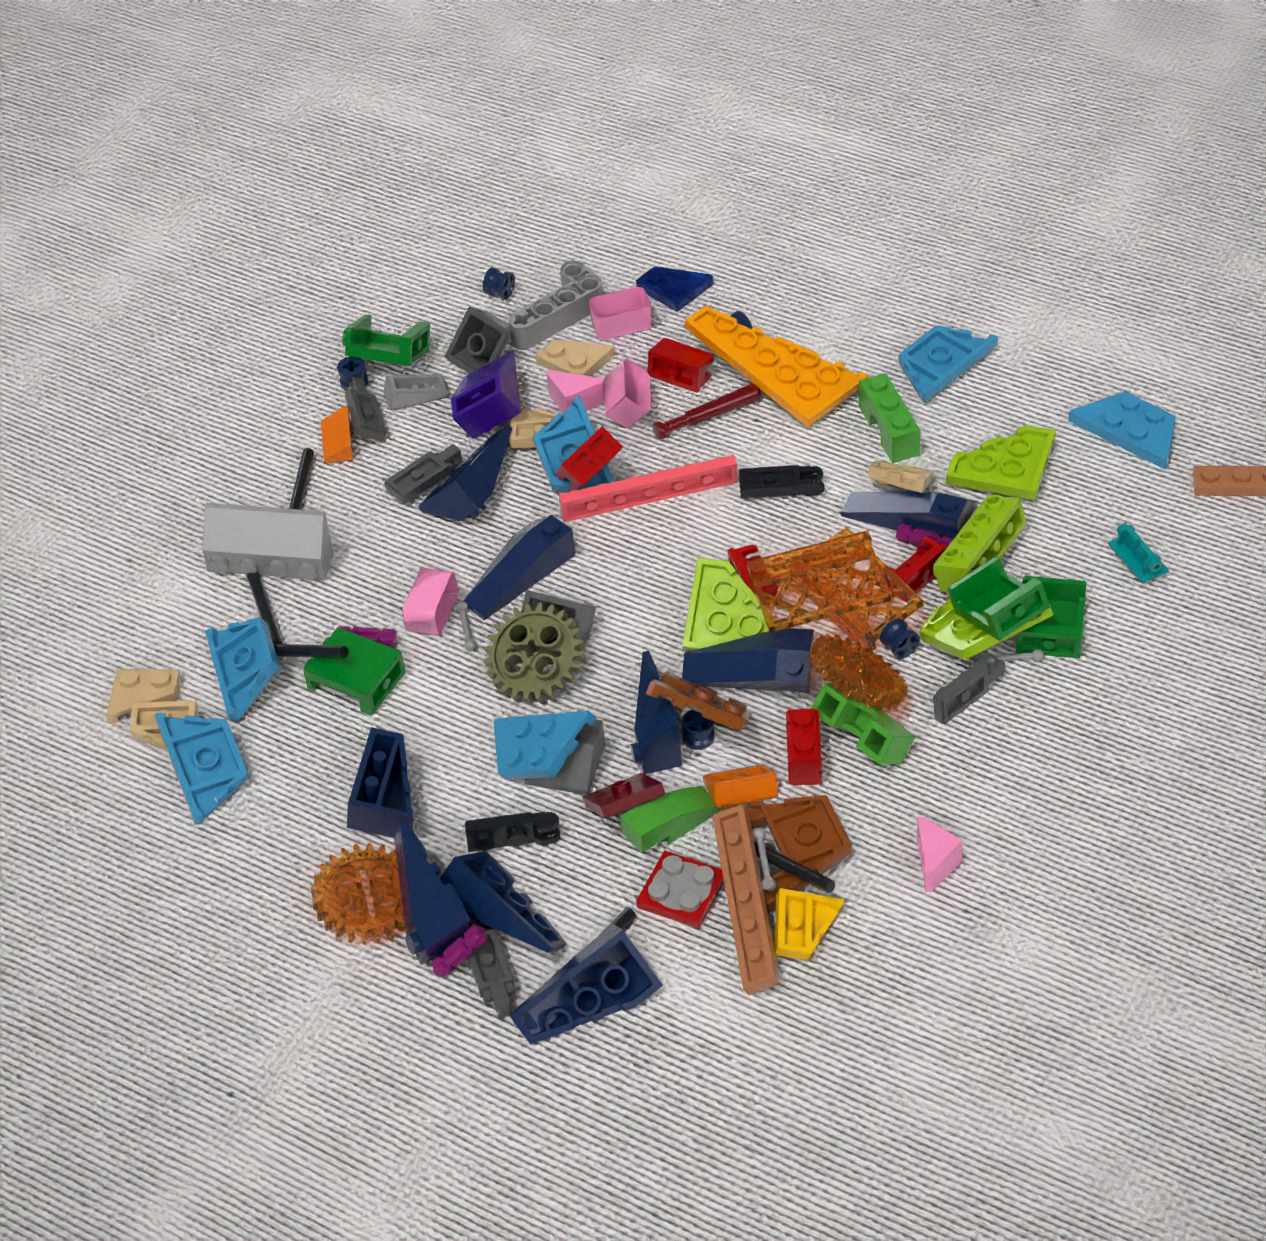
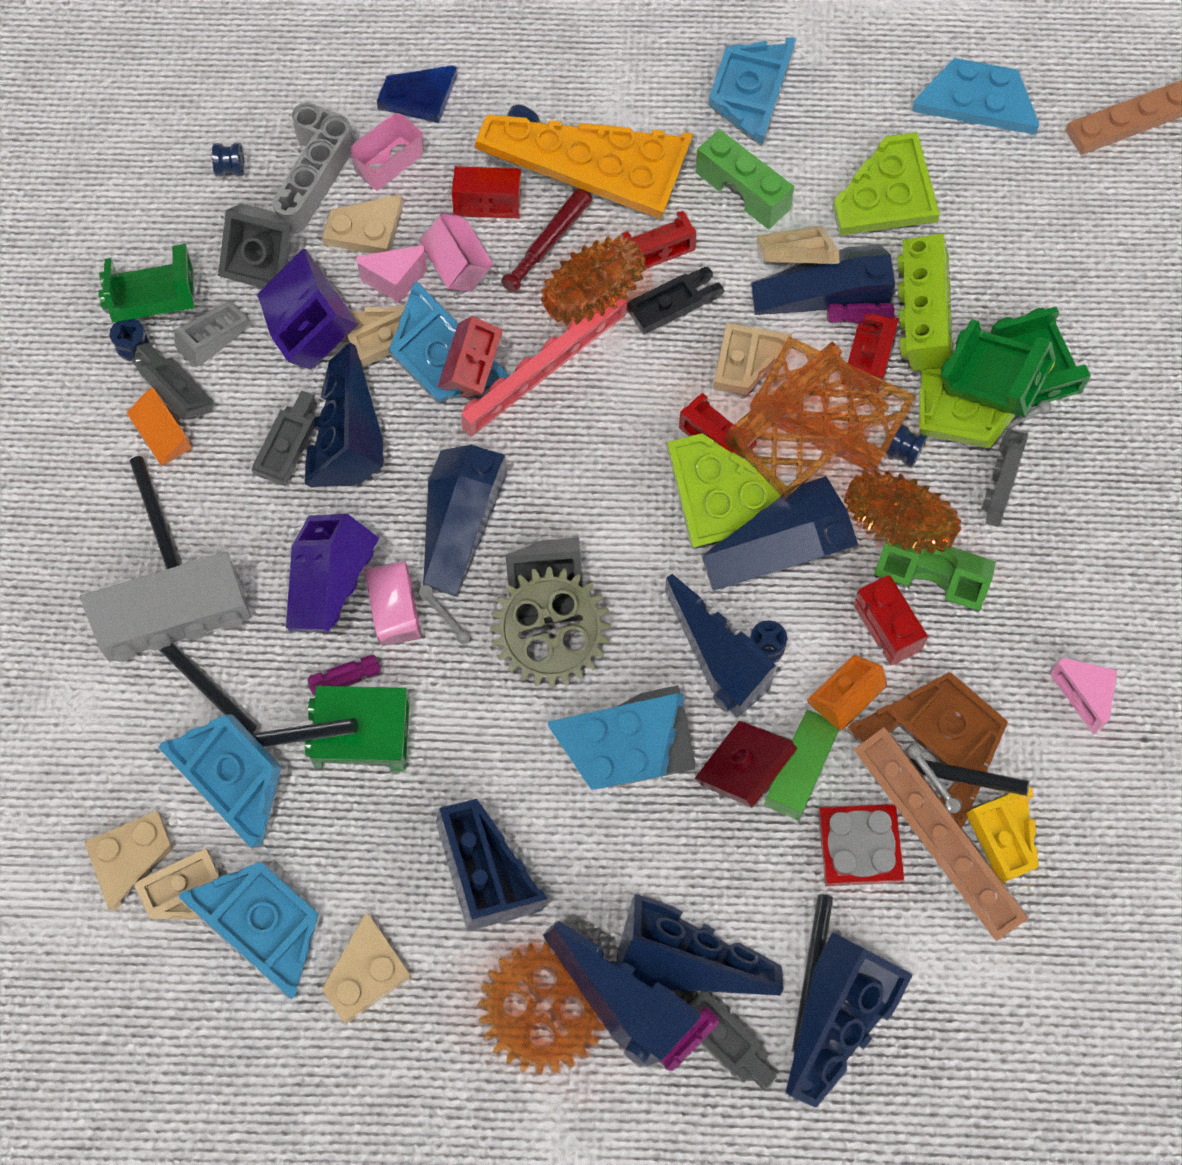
camera: 30 degrees left, 20 degrees up
(256, 825) = (364, 972): none -> tan wing
(393, 556) = (325, 569): none -> dark purple slope
(512, 831) = (652, 856): black hinge -> none
(701, 699) = (770, 615): dark orange wing -> none
(717, 440) = (593, 280): none -> clear orange gear
(792, 442) = (666, 241): none -> red hinge
(806, 531) = (746, 357): none -> tan wing
(1137, 554) = (1073, 250): teal hinge -> none

